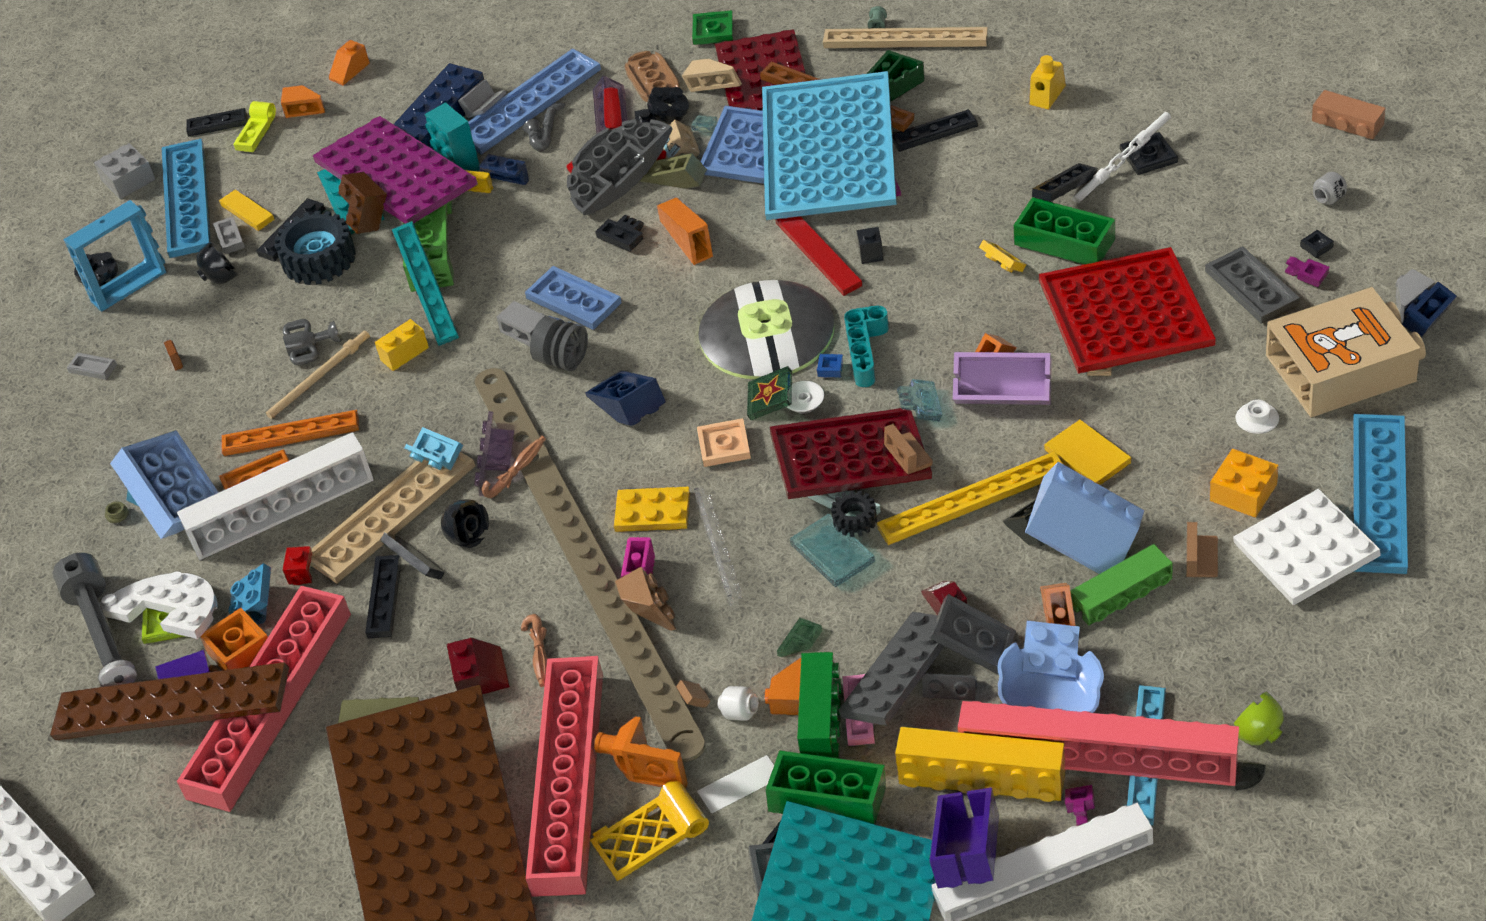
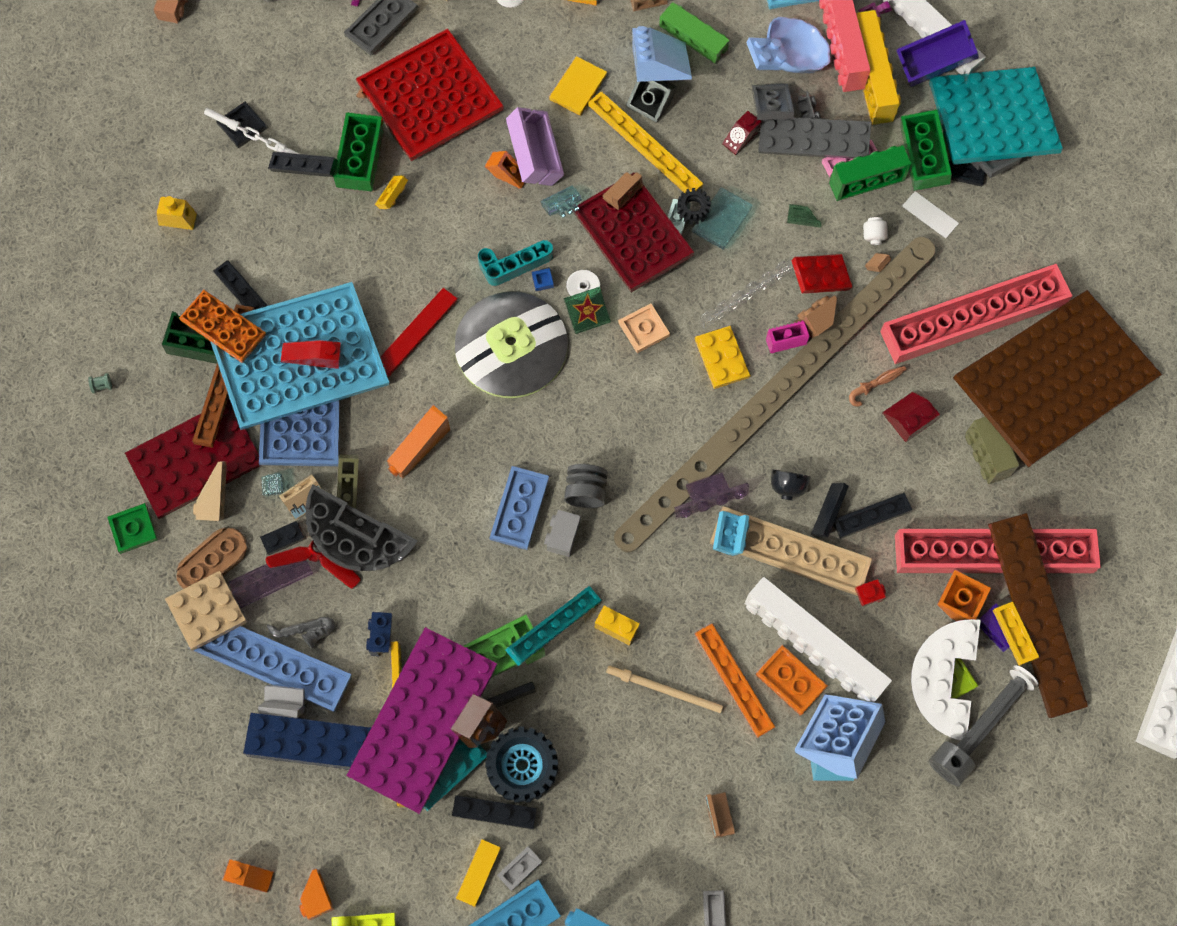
camera: 120 degrees left, 25 degrees up
(116, 512) = (867, 783): olive plate -> none
(152, 669) = (1015, 633): none -> yellow plate
(172, 383) = (719, 815): none -> medium nougat panel
(173, 354) = (683, 834): dark orange tile -> none
(214, 265) = (568, 853): black cylinder -> none
(252, 594) = (913, 614): dark azure plate -> none
(305, 340) = (632, 717): dark grey piece -> none
(387, 252) = (512, 694): none -> black tile
(452, 137) = (365, 688): teal brick -> none
(522, 461) = (713, 465): nougat piece -> none
(597, 57) = (205, 610): none -> tan plate
(623, 233) = (431, 499): black hinge -> none
(627, 396) = (618, 419): dark blue slope -> none
(639, 760) = (945, 276): orange plate -> none
(658, 104) = (258, 514): black plate -> none
(675, 806) = (969, 239): yellow piece -> none
(703, 624) = (821, 273): none -> red plate
(784, 690) = (851, 203): orange slope -> none
(815, 149) = (312, 353): none -> red slope
(870, 245) = (404, 290): black brick -> none
(878, 82) = (222, 326): none -> orange tile
(906, 37) = (122, 352): tan plate -> none
(1058, 604) = (726, 63): orange slope -> none

